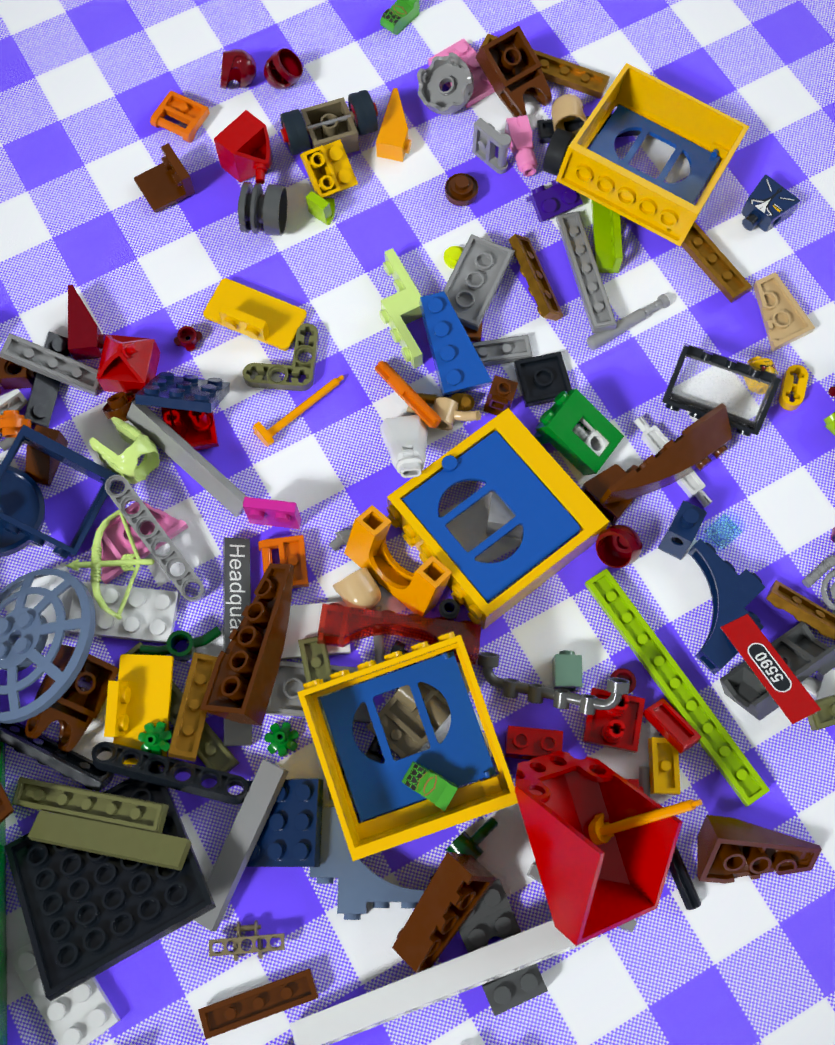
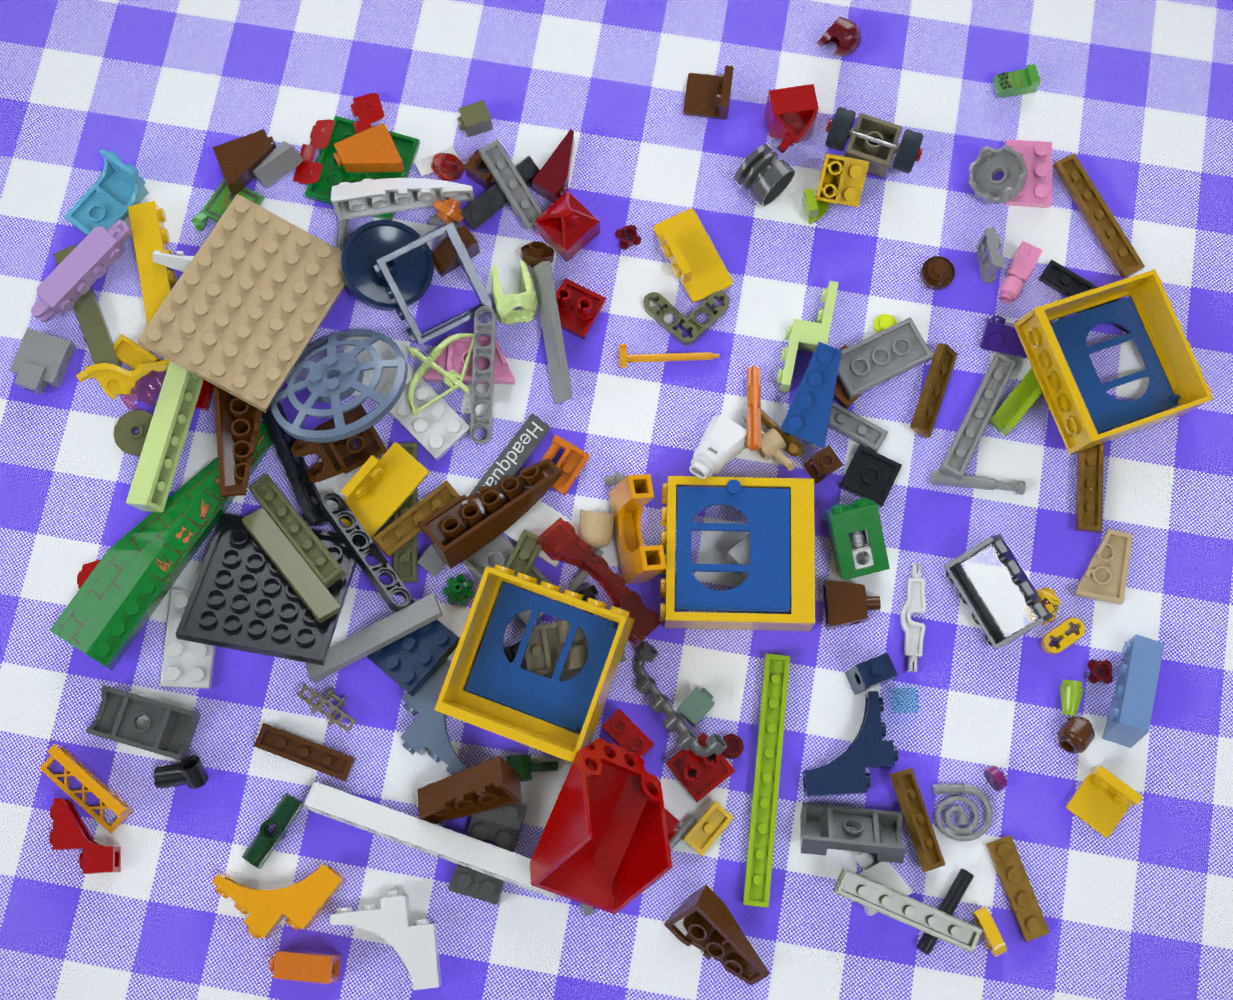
camera: 40 degrees right, 5 degrees up
(155, 738) = (374, 520): green plant -> none
(177, 636) = (442, 459): dark green piece -> none
(183, 110) = (772, 42): orange plate -> none
(183, 392) = (587, 280): dark blue plate -> none
(272, 512) = (580, 422): dark pink plate -> none
(283, 69) = (877, 64): dark red helmet -> none
(393, 135) = (920, 186): light orange slope -> none
(430, 785) = (529, 704): bright green leg -> none
(451, 605) = (652, 589): black pin -> none
(514, 71) = (1067, 212): reddish brown brick -> none
(556, 151) = (1040, 296): black tyre -> none
(566, 109) = (1077, 268): tan helmet -> none
(602, 832) = (618, 832): light orange piece -> none
(618, 546) = (812, 648): dark red helmet -> none
(672, 725) = (738, 805): red tile -> none
(677, 458) = (929, 620): reddish brown wedge -> none
(683, 882) = (655, 906): black axle -> none
(768, 205) = (1178, 475): dark blue torso -> none
(770, 669) = (839, 823): red sticker -> none

